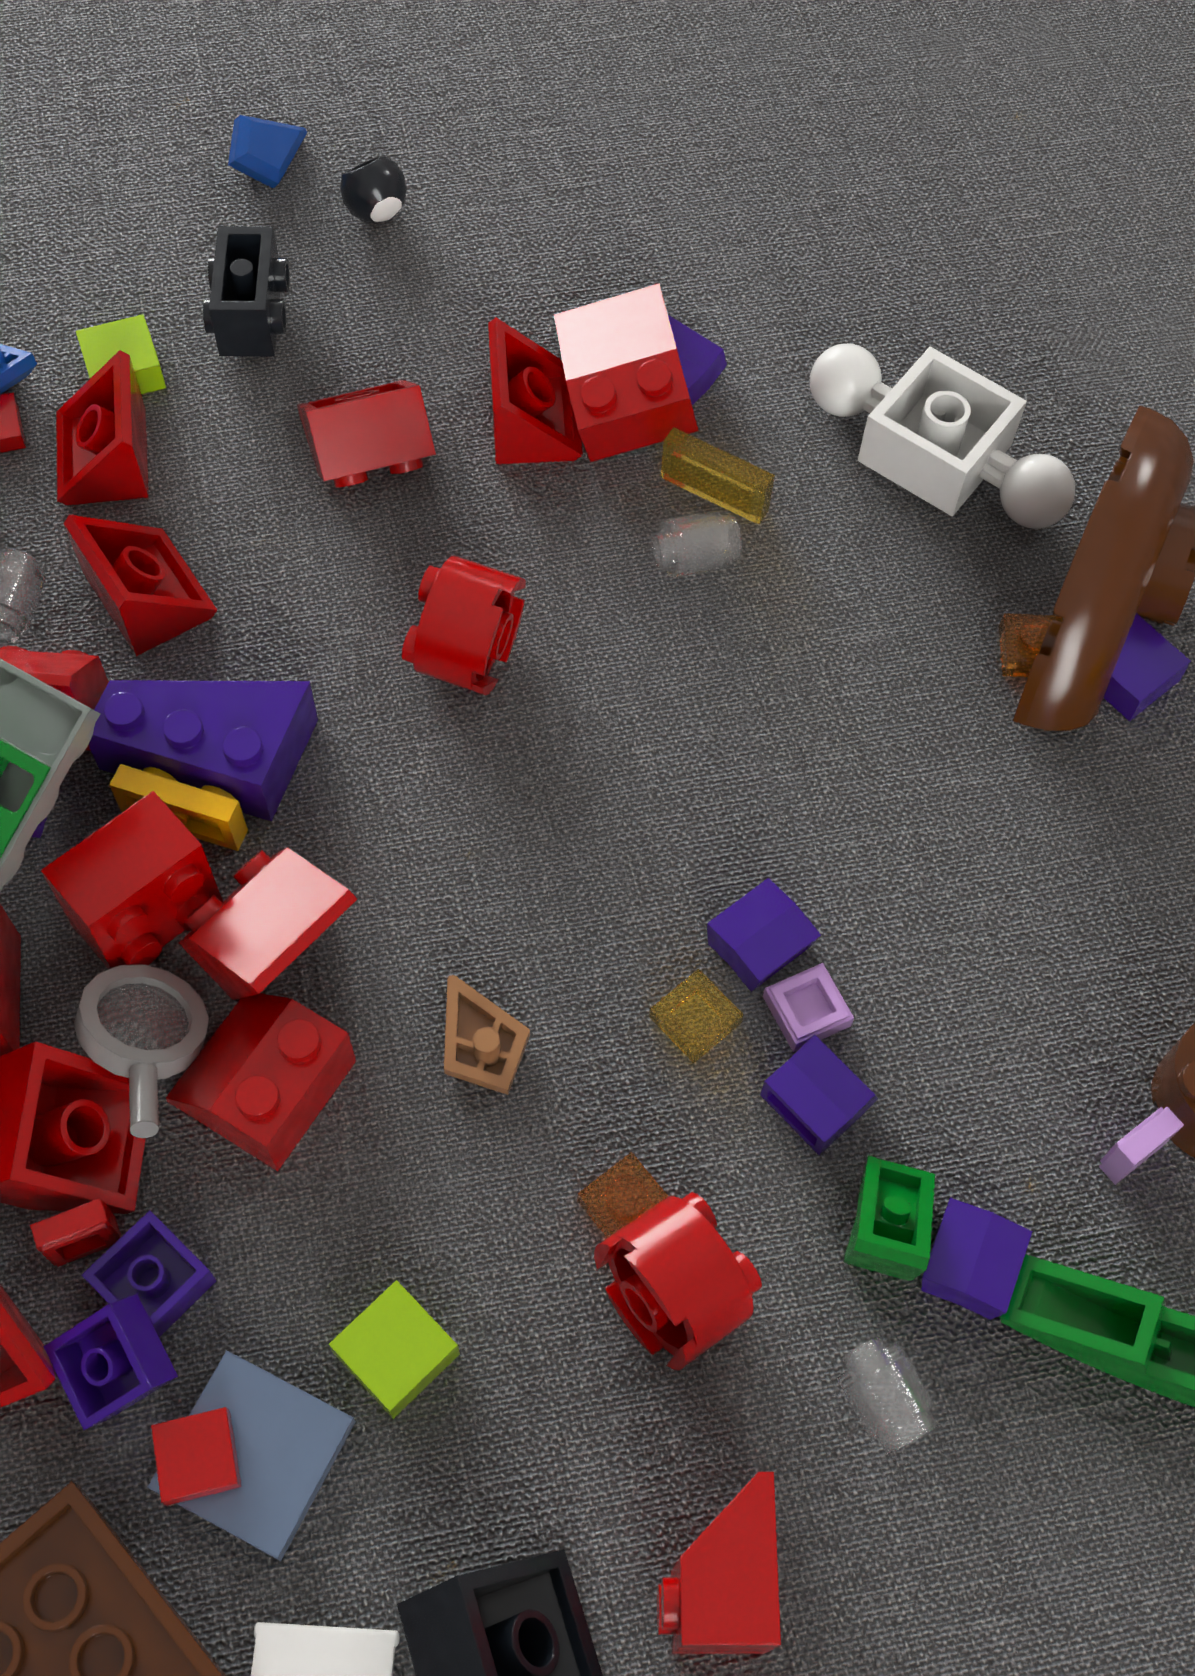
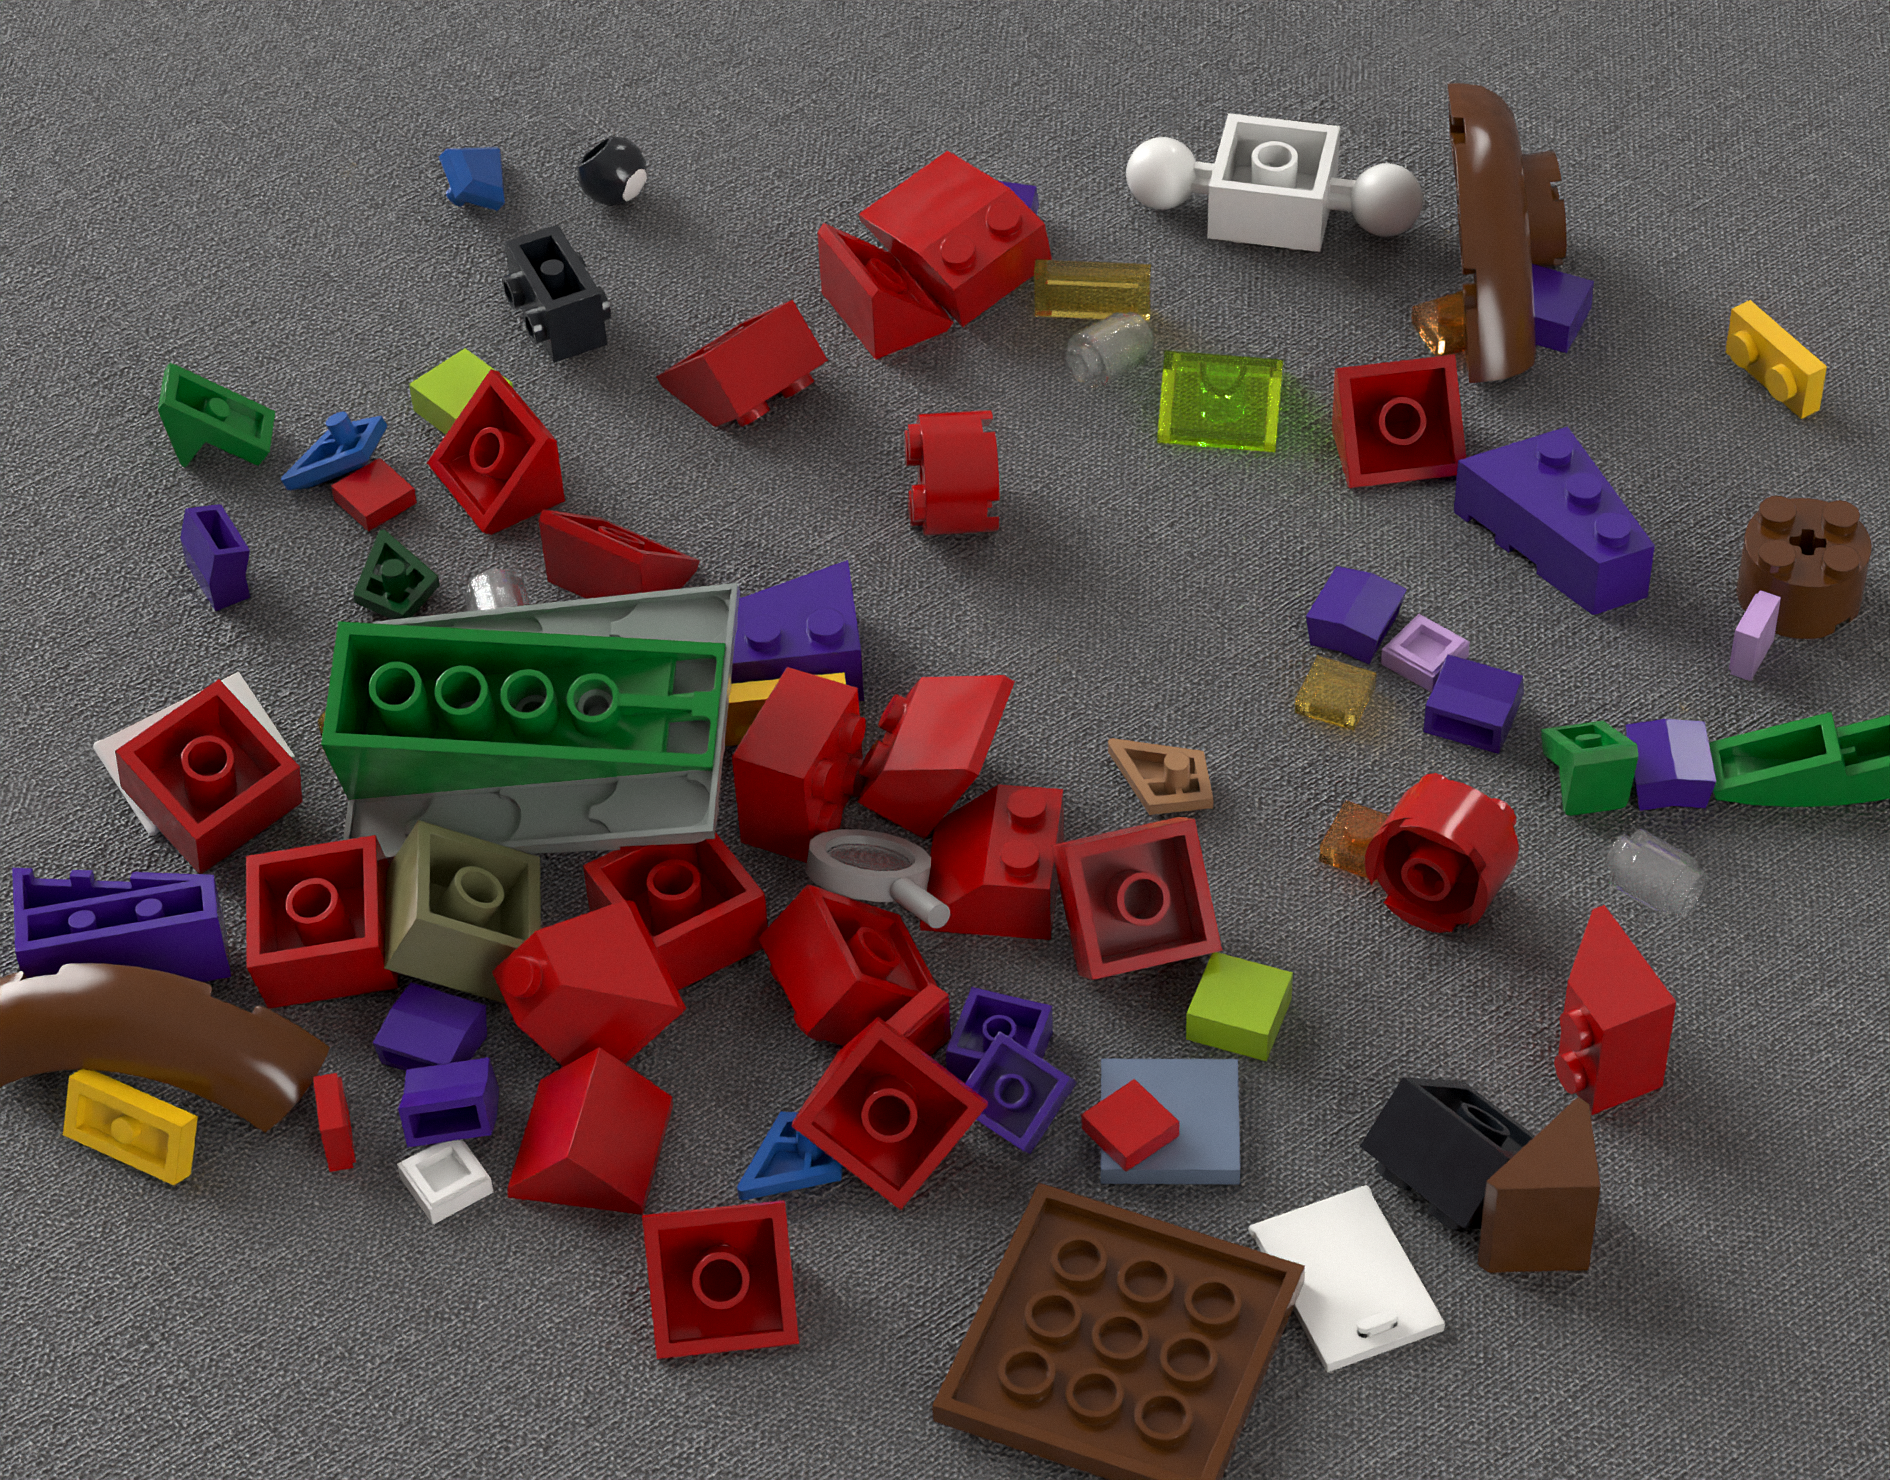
camera: 20 degrees left, 15 degrees down
(341, 1195) = (1136, 897): none -> red brick
(771, 638) = (1221, 401): none -> clear neon green slope
(918, 742) = (1398, 421): none -> red slope
(1018, 917) = (1561, 516): none -> dark purple wedge

